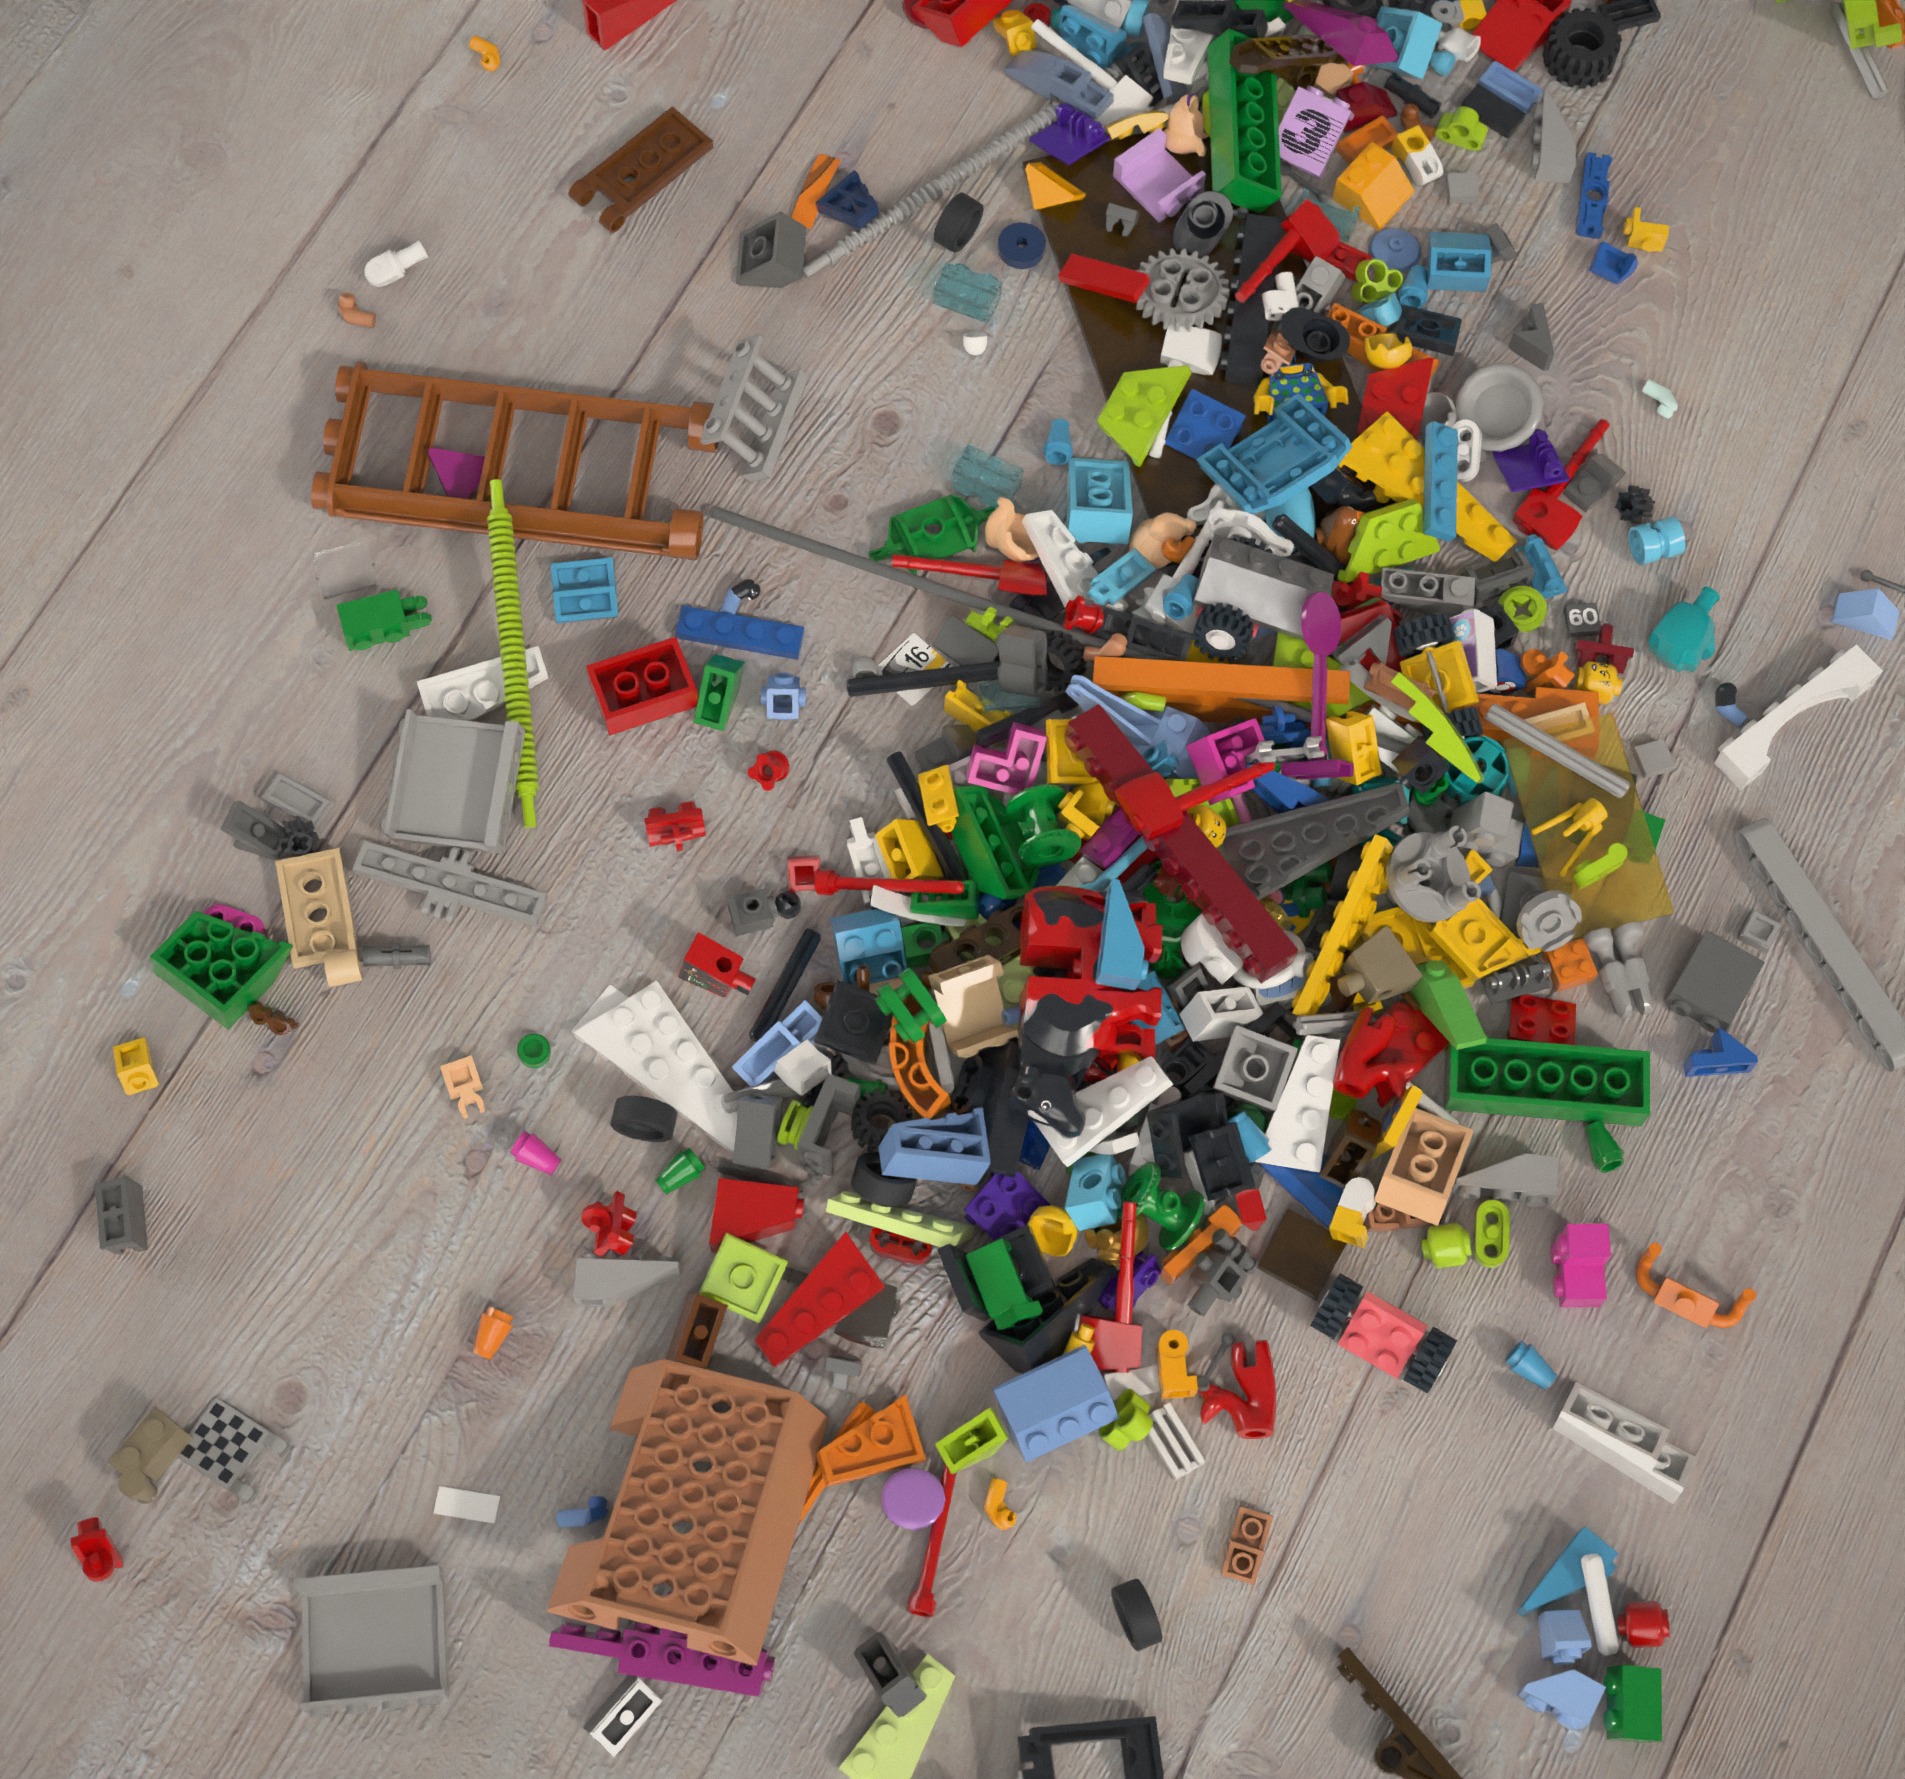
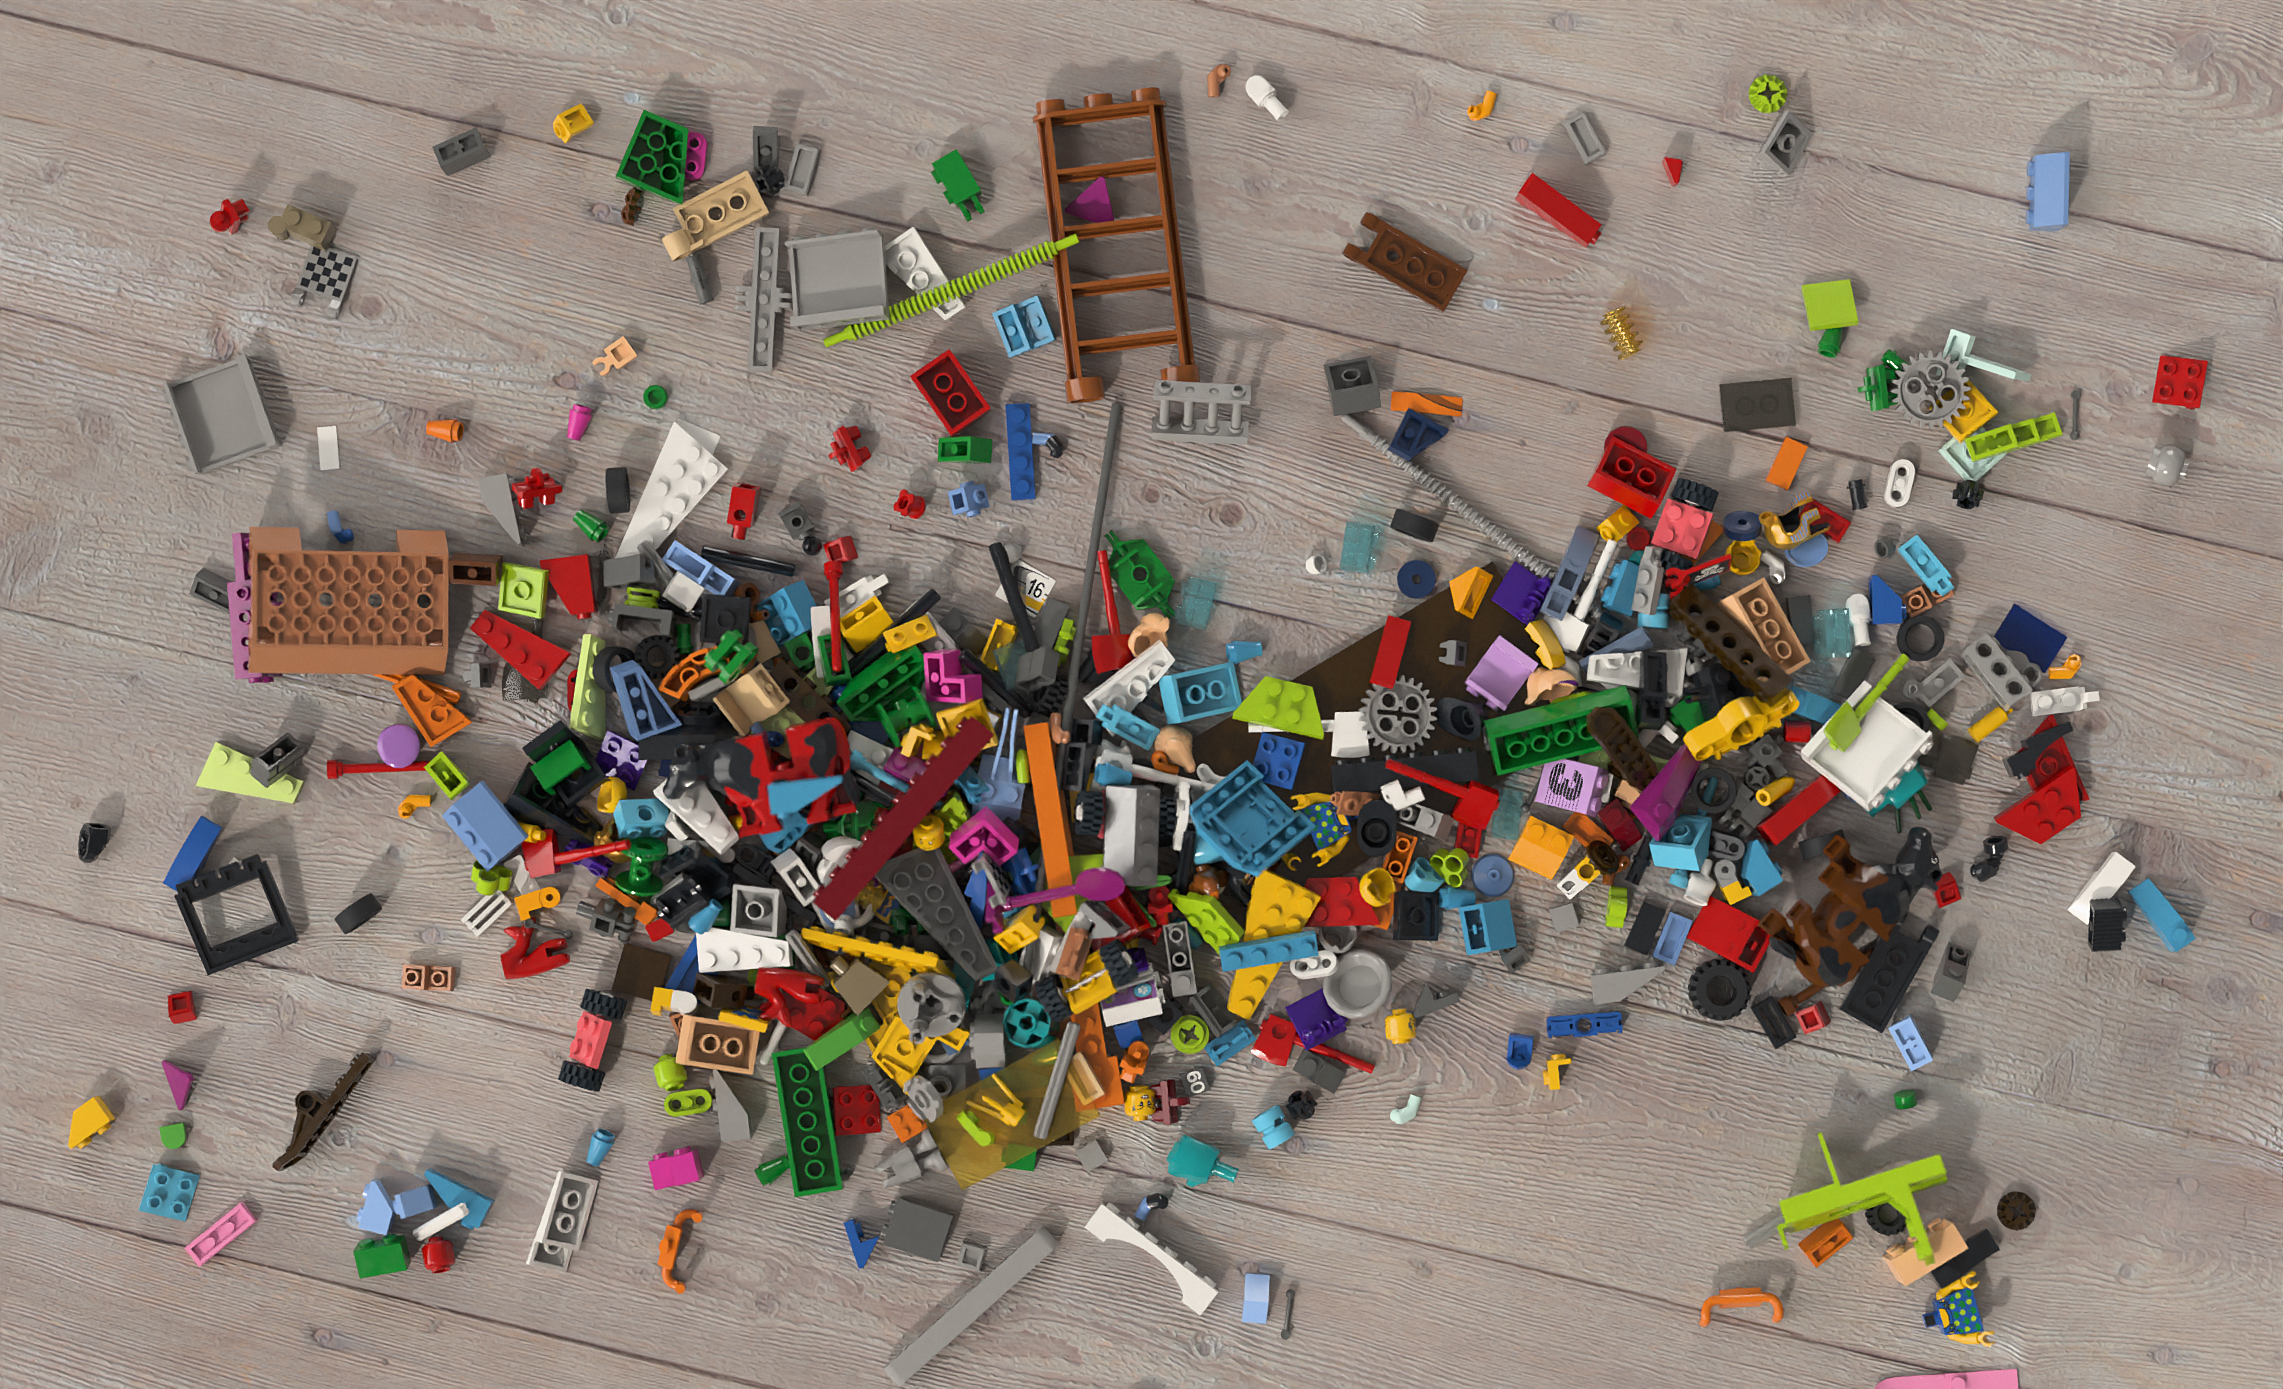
camera: 85 degrees right, 20 degrees up
(1017, 1313) = (538, 788): green tile -> none
(1083, 615) = (1081, 705): red brick -> none
(1155, 808) = (915, 795): red piece -> none
(1403, 121) = (1608, 864): none -> dark brown gear
(1445, 738) = (1032, 995): lime slope -> none
(1559, 377) = (1400, 1026): none -> yellow head

